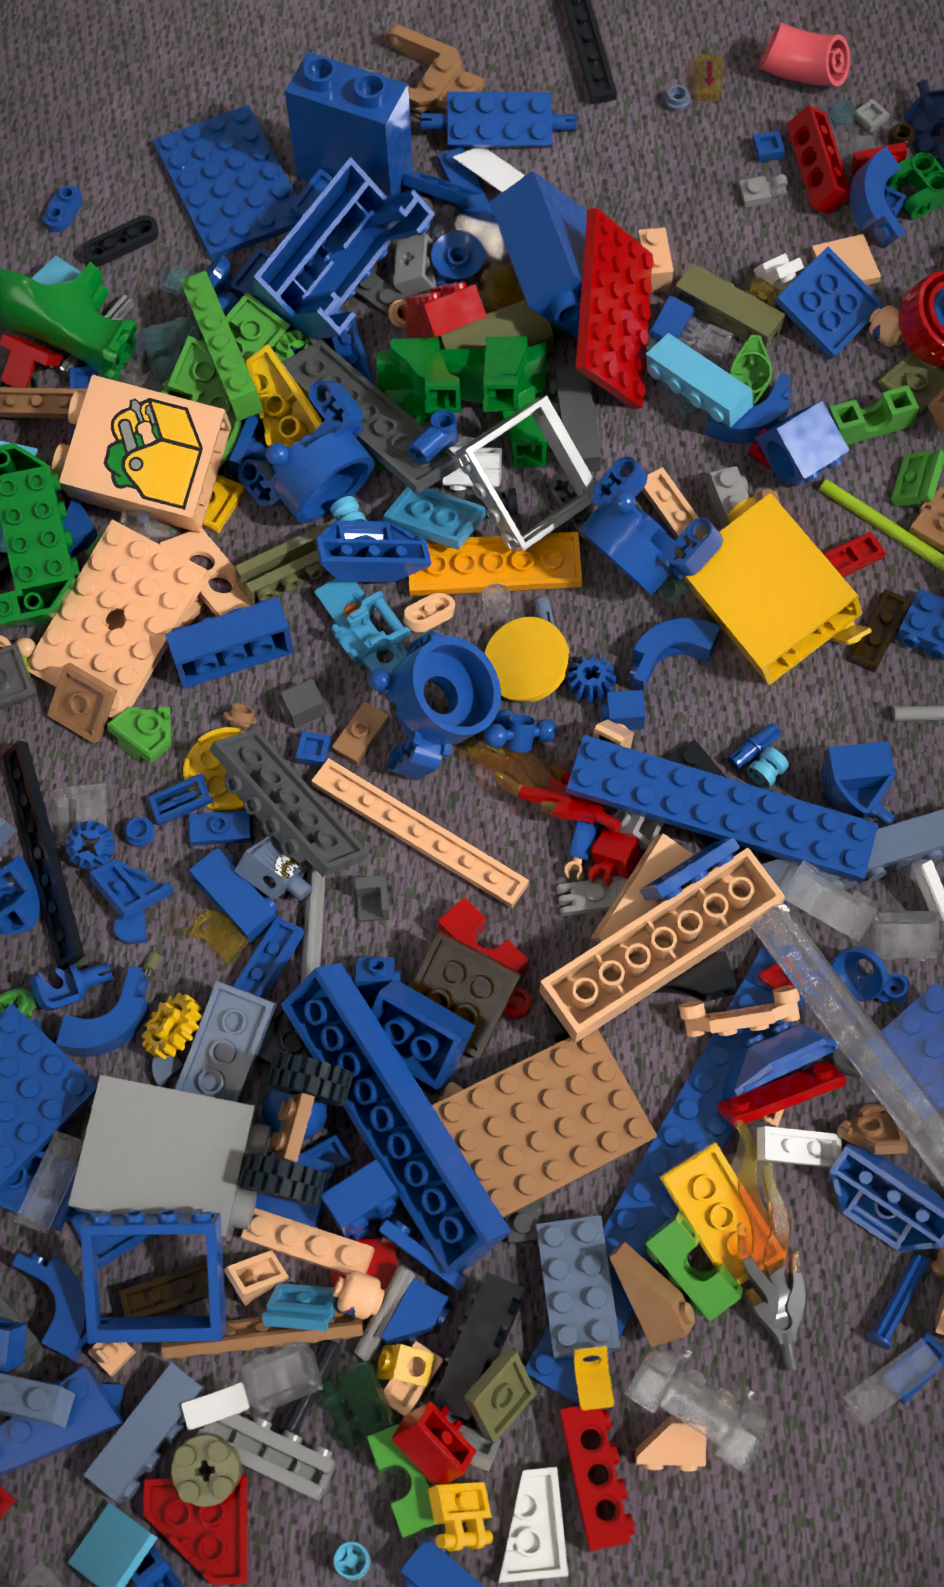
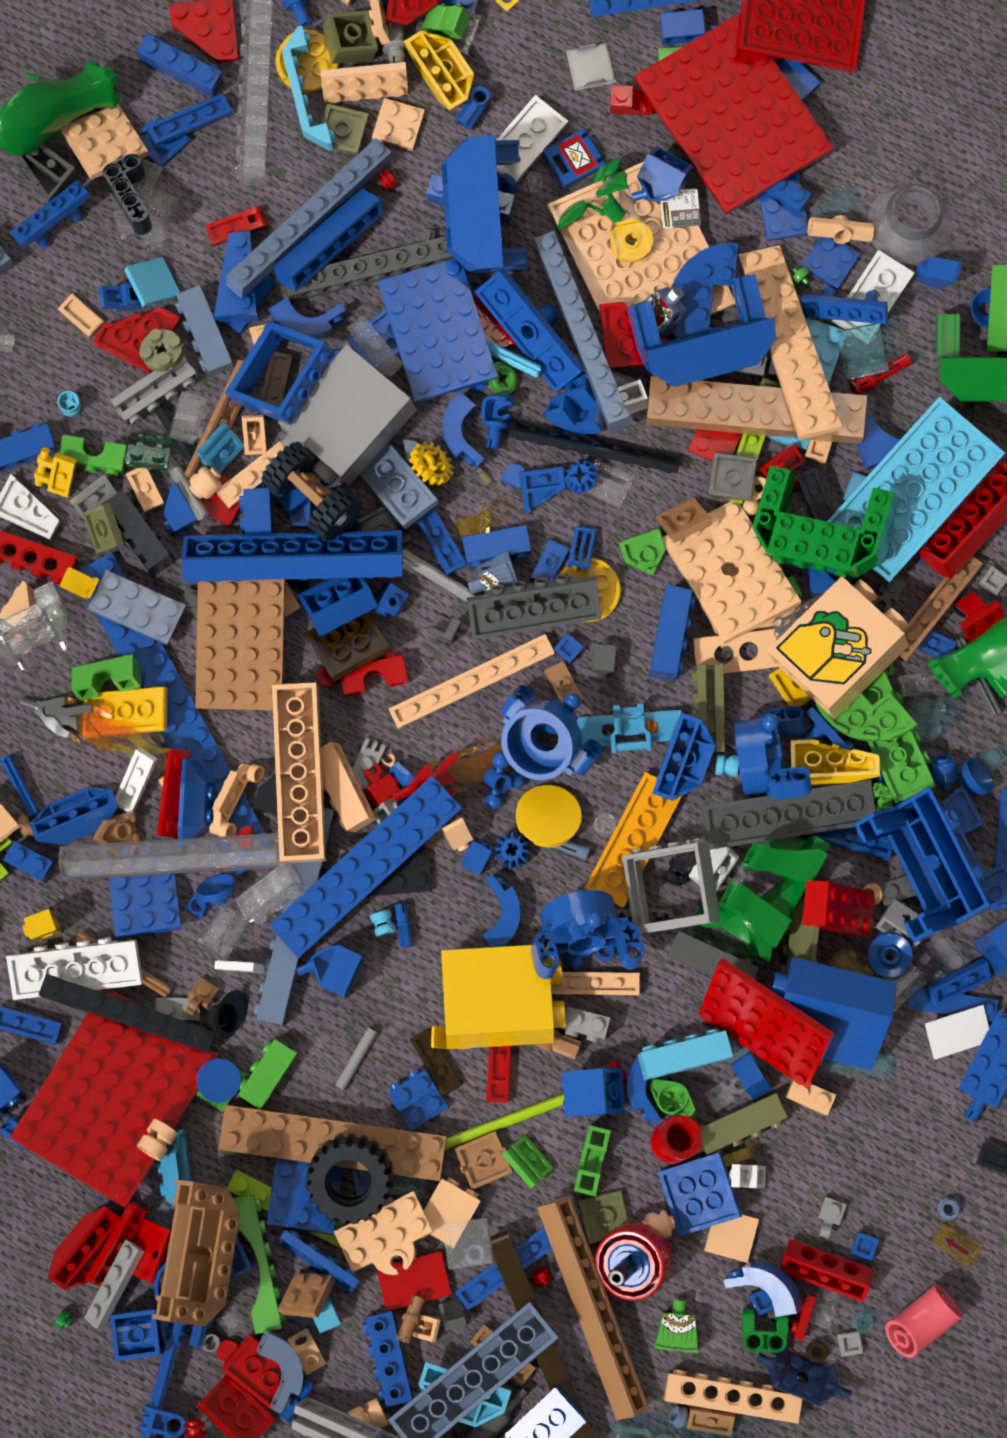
camera: 115 degrees right, 15 degrees up
(139, 831) = (576, 513): blue plate -> none
(215, 1406) = (192, 372): white sticker -> none
(222, 346) = (873, 737): bright green arch -> none
(240, 716) = (618, 616): medium nougat plate -> none
(394, 1361) = (158, 483): yellow bracket -> none
(421, 1252) = (223, 524): blue plate -> none
(429, 612) = (620, 774): light nougat plate -> none
(434, 1444) = (97, 476): red brick -> none
(436, 516) = (684, 818): dark azure plate -> none
(439, 435) = (731, 835): blue piece -> none
(654, 1299) = (102, 643): medium nougat slope -> none
(690, 870) = (331, 814): blue plate -> none
(794, 343) = (676, 1139): none -> red tile

